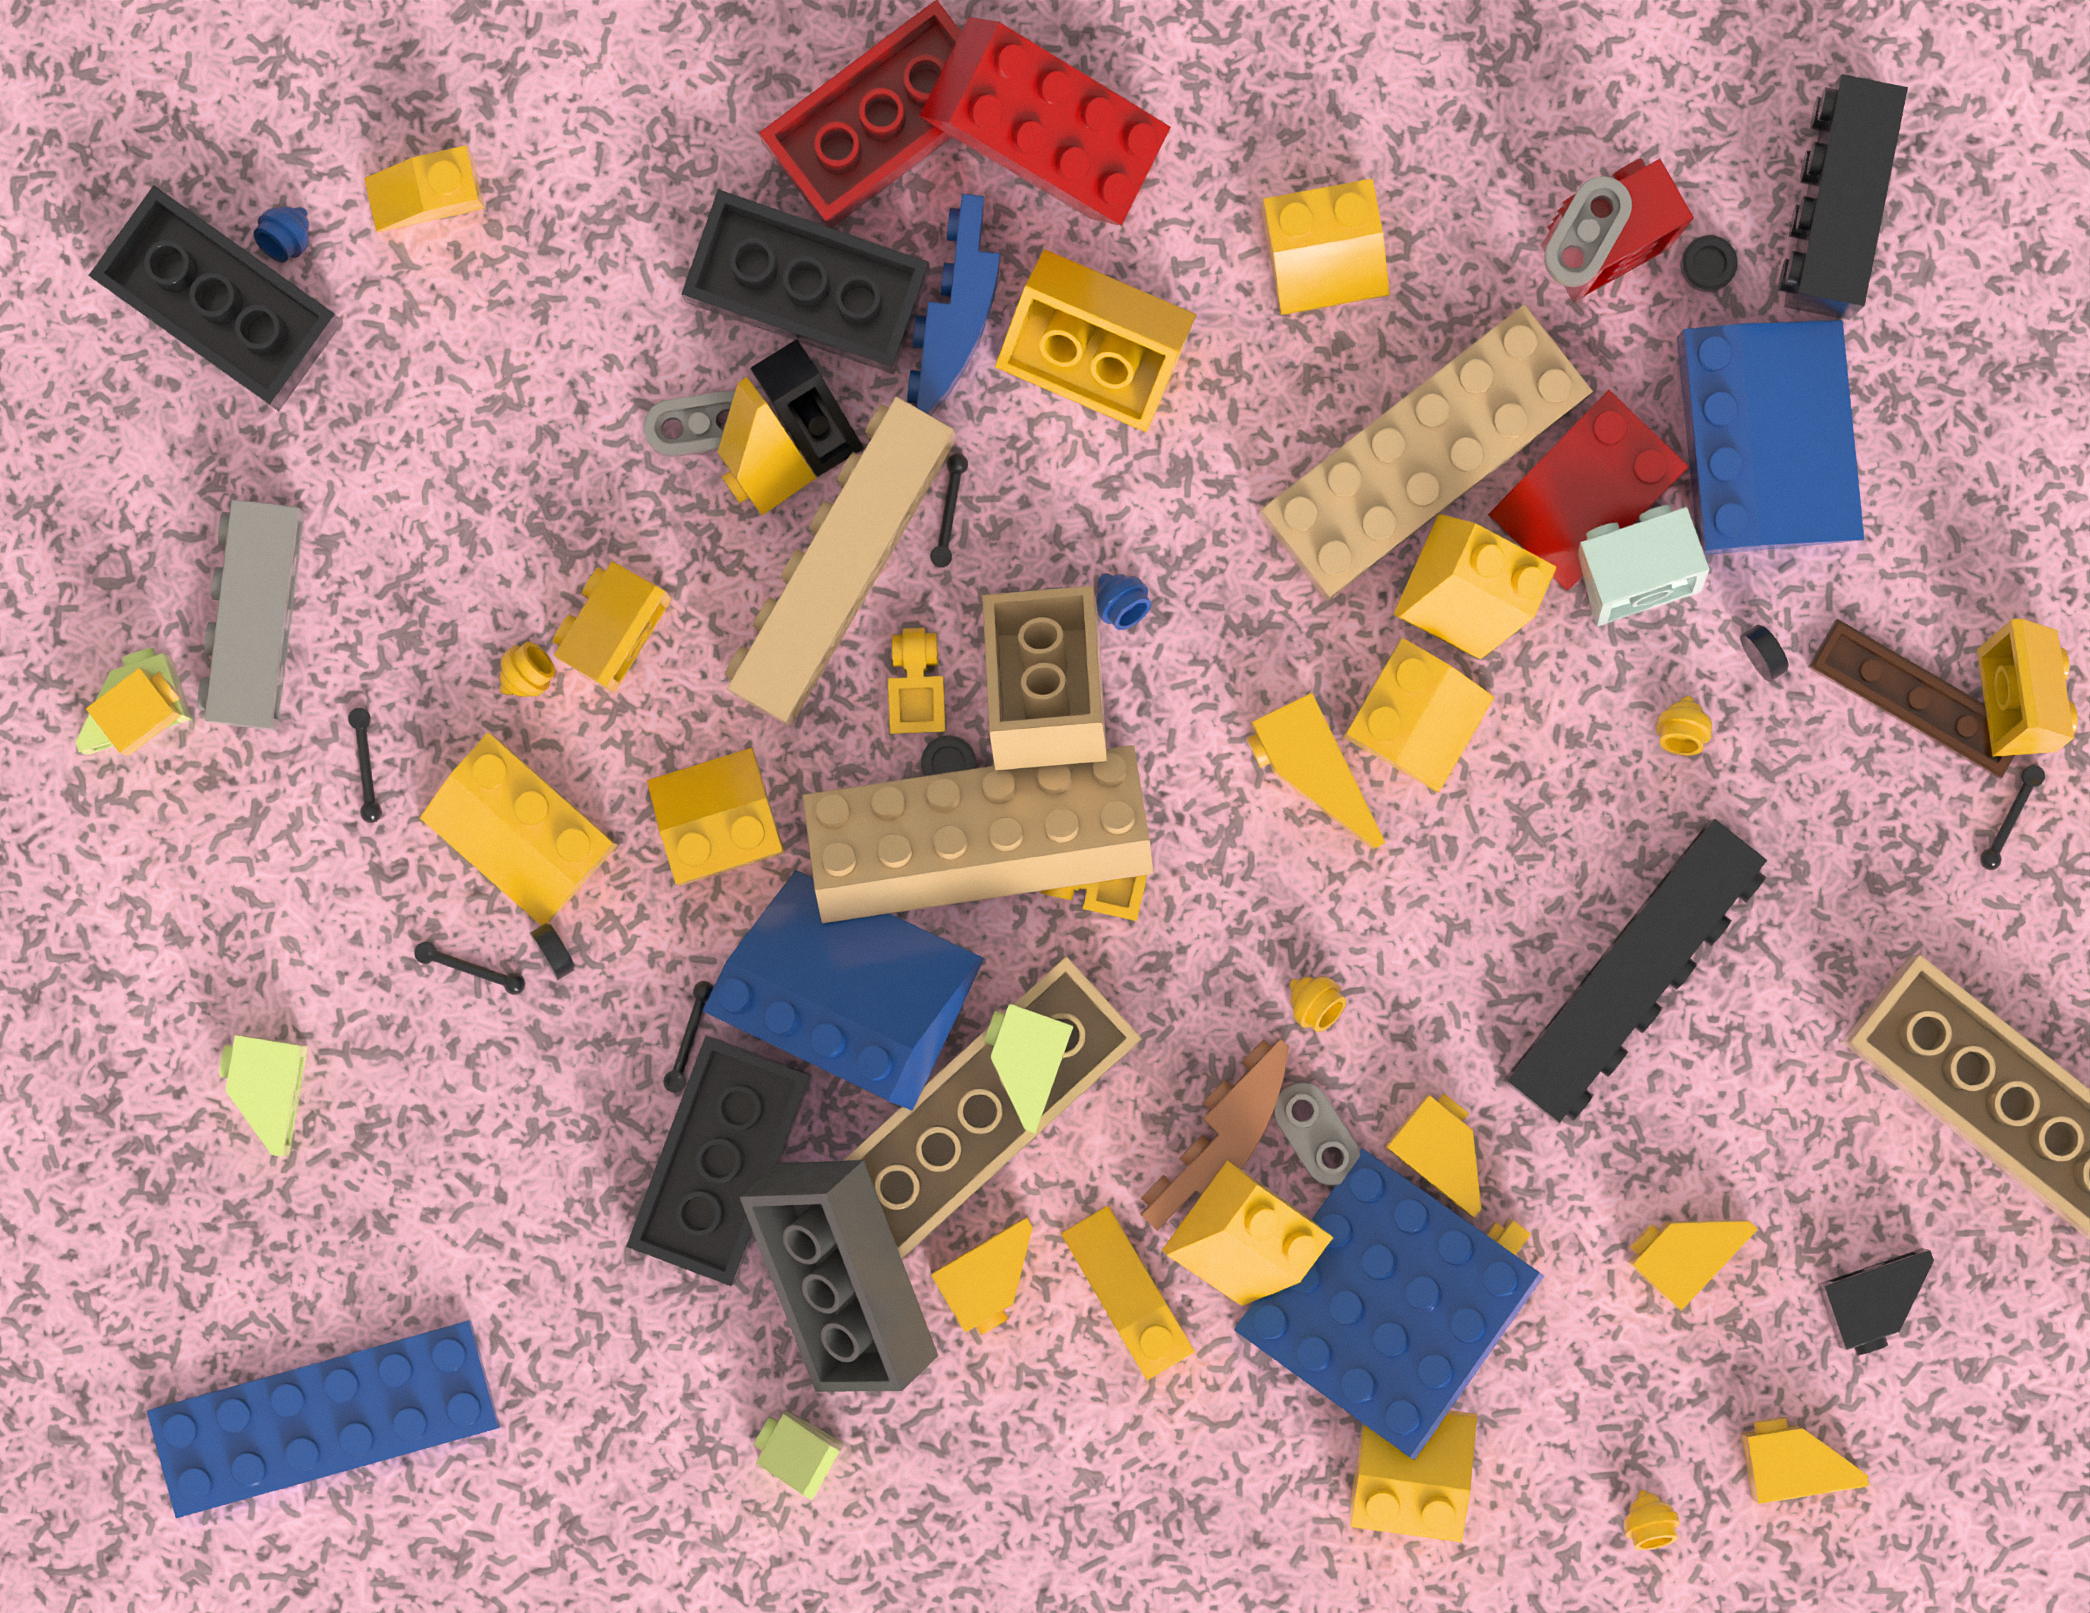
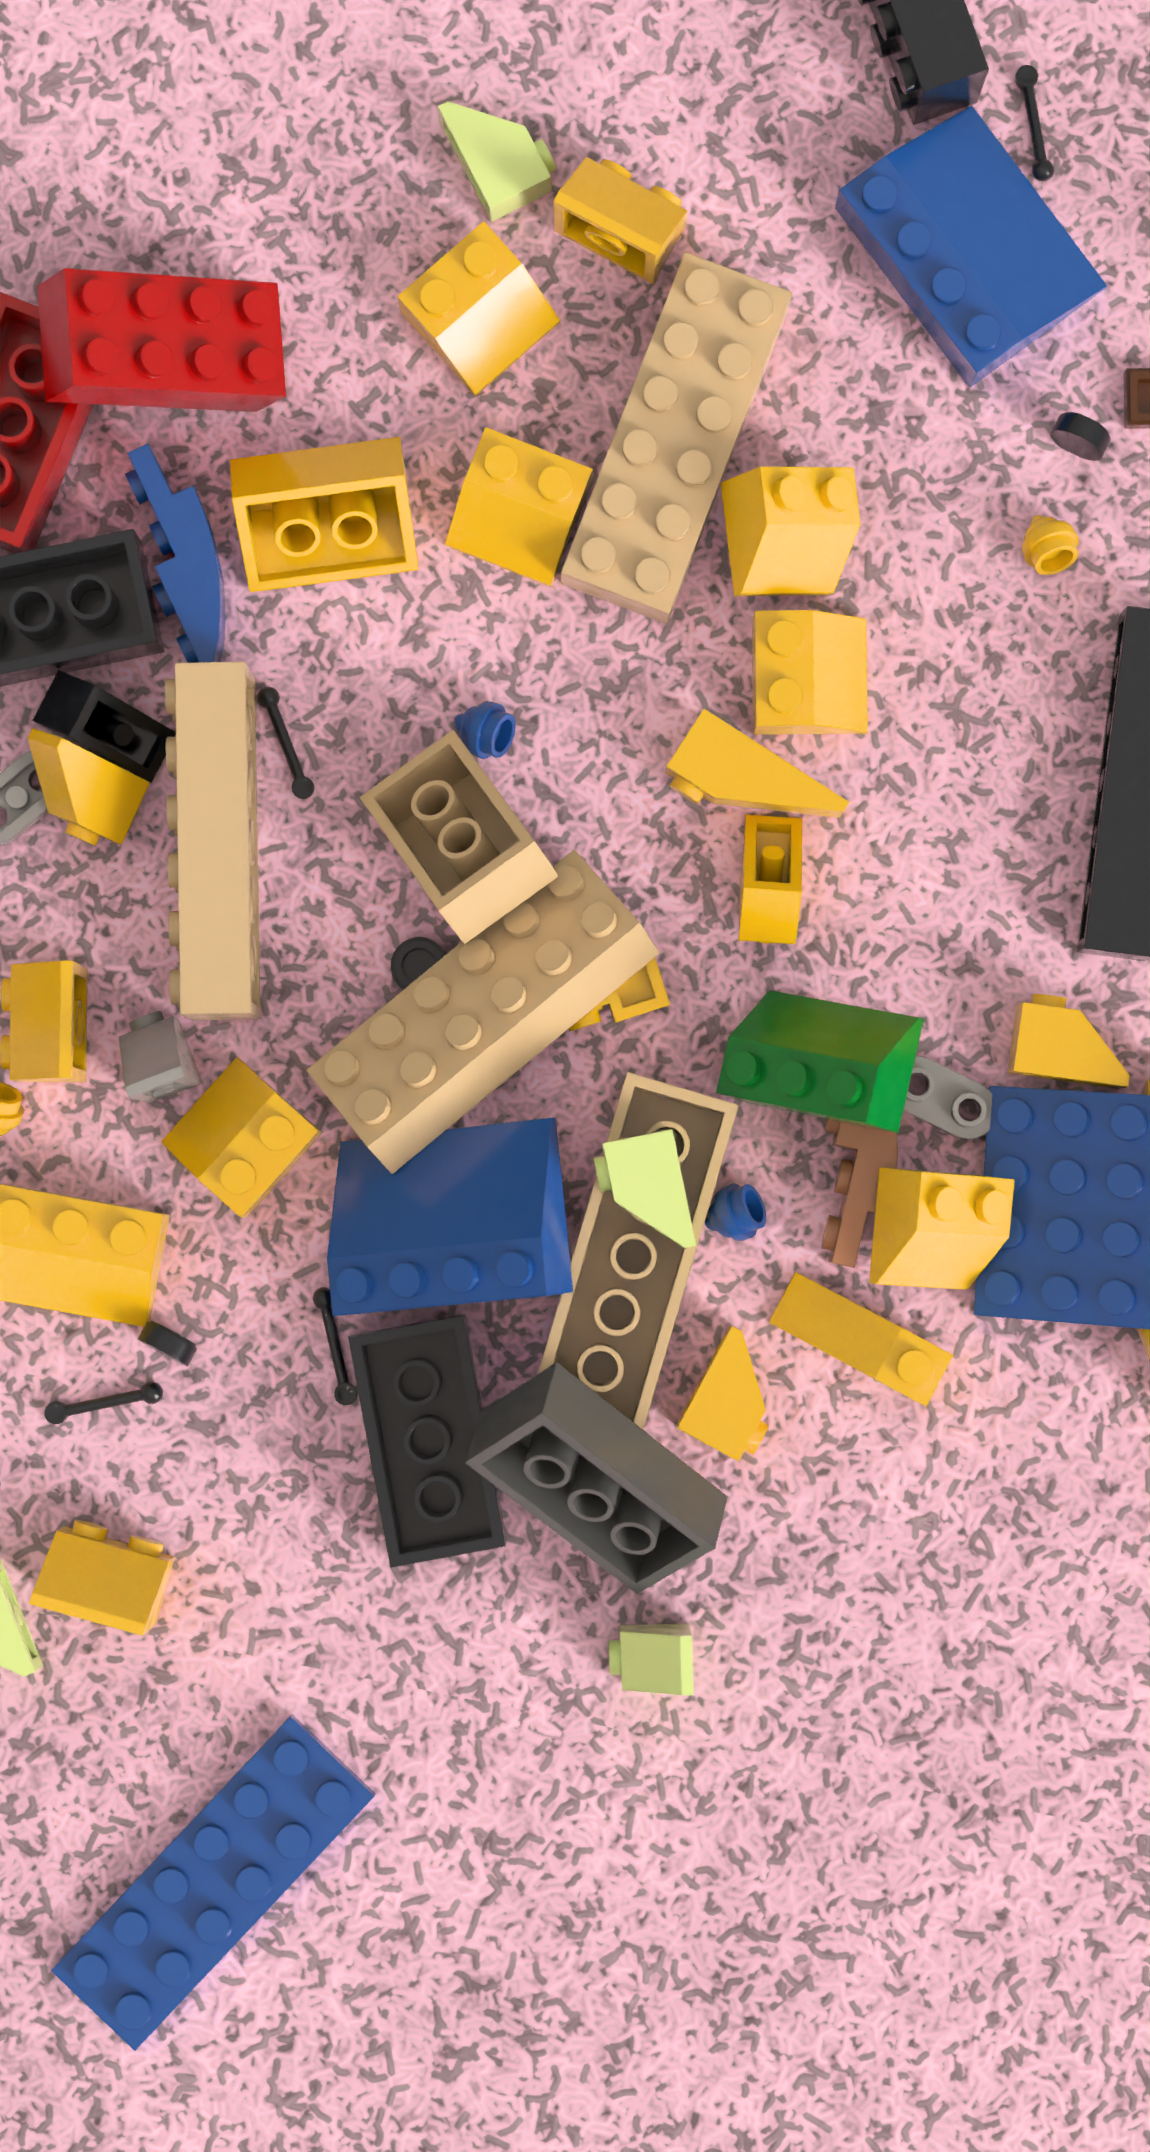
camera: 30 degrees left, 0 degrees up
(385, 1113) = (103, 1578): none -> yellow slope
(685, 710) = (157, 1059): none -> light grey slope
(918, 700) = (358, 925): yellow plate -> none
(1088, 1126) = (737, 1212): none -> blue plate
(1234, 1042) = (822, 1060): none -> green slope
(1260, 431) = (518, 506): none -> yellow slope
(1283, 867) = (770, 879): none -> yellow slope
(1316, 1002) = (871, 981): yellow plate -> none
(1418, 130) = (498, 158): none -> yellowish green slope
(1489, 240) = (619, 217): none -> yellow slope
(1586, 232) = (707, 134): light grey plate -> none
(1594, 476) = (840, 382): red slope -> none
(1642, 564) = (928, 419): light aqua slope -> none
(1652, 228) = (727, 128): red brick -> none
(1709, 263) = (824, 125): black tile -> none
(1901, 325) = (1026, 79): none -> black hinge

